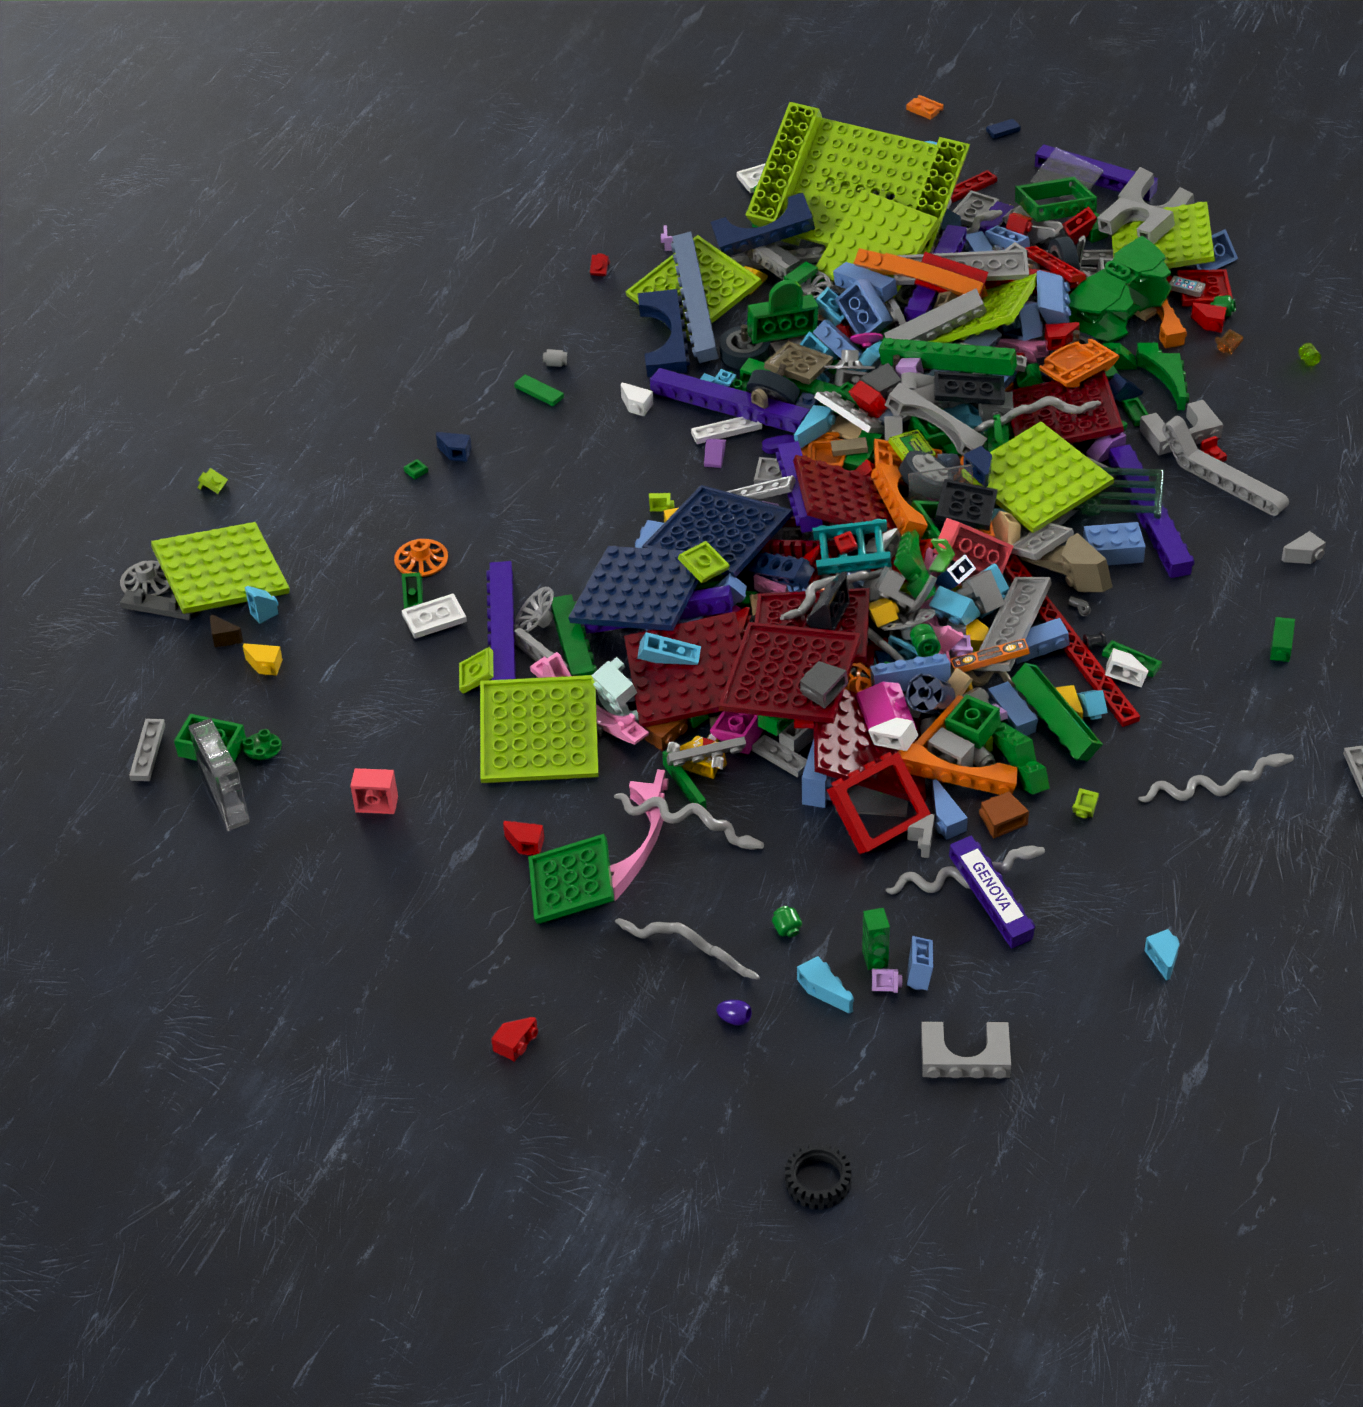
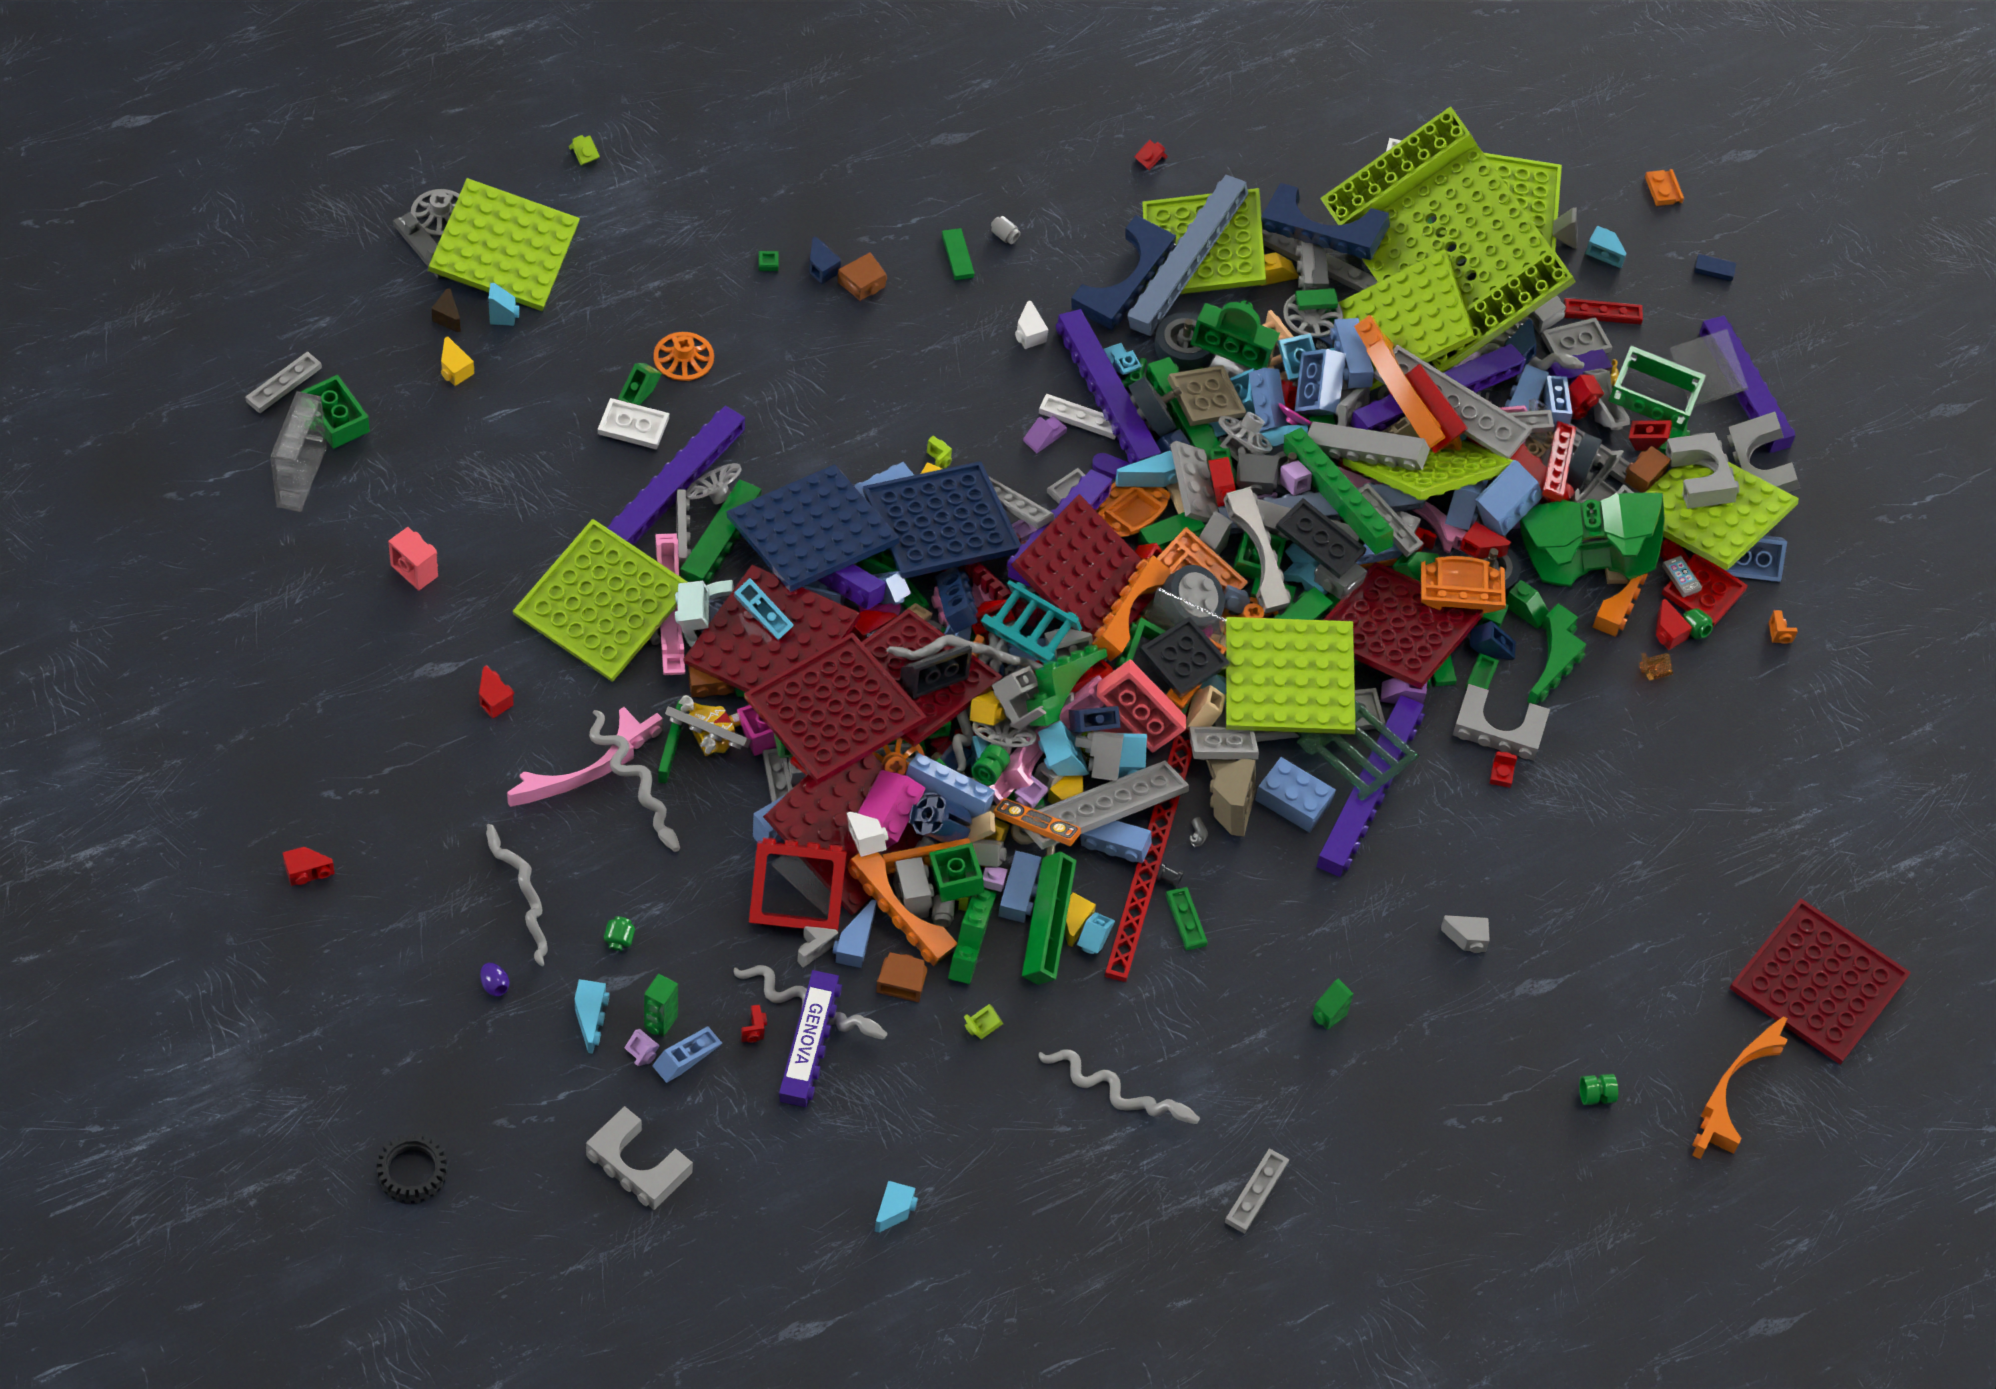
camera: 30 degrees right, 10 degrees up
(262, 745) = (375, 446): green dish -> none
(476, 669) = (611, 504): lime tile -> none
(493, 438) = (862, 277): none -> dark orange torso
(570, 879) = (486, 759): green plate -> none
(666, 239) = (1241, 170): lavender bracket -> none
(703, 562) = (881, 544): lime tile -> none
(759, 398) = (1124, 409): dark tan tile -> none
(823, 683) = (838, 741): dark grey torso -> none
(845, 542) = (1025, 616): red tile -> none
(849, 446) = (1158, 517): dark tan tile -> none
(909, 442) = (1216, 557): lime tile -> none
(916, 380) = (1281, 494): light grey piece -> none
(944, 556) = (1089, 697): bright green bracket -> none
(944, 910) = (756, 1031): none -> red bracket
(981, 464) = (1240, 625): dark blue slope -> none
(998, 430) = (1301, 602): green tile -> none
(1045, 401) = (1376, 603): light grey animal -> none
(1100, 243) = (1647, 469): none -> dark orange brick
(1125, 668) = (1163, 922): white slope -> none
(1218, 472) = (1481, 795): light grey beam -> none
(1270, 280) = (1779, 629): none -> orange bracket
(1309, 354) = (1720, 737): clear neon green wheel -> none

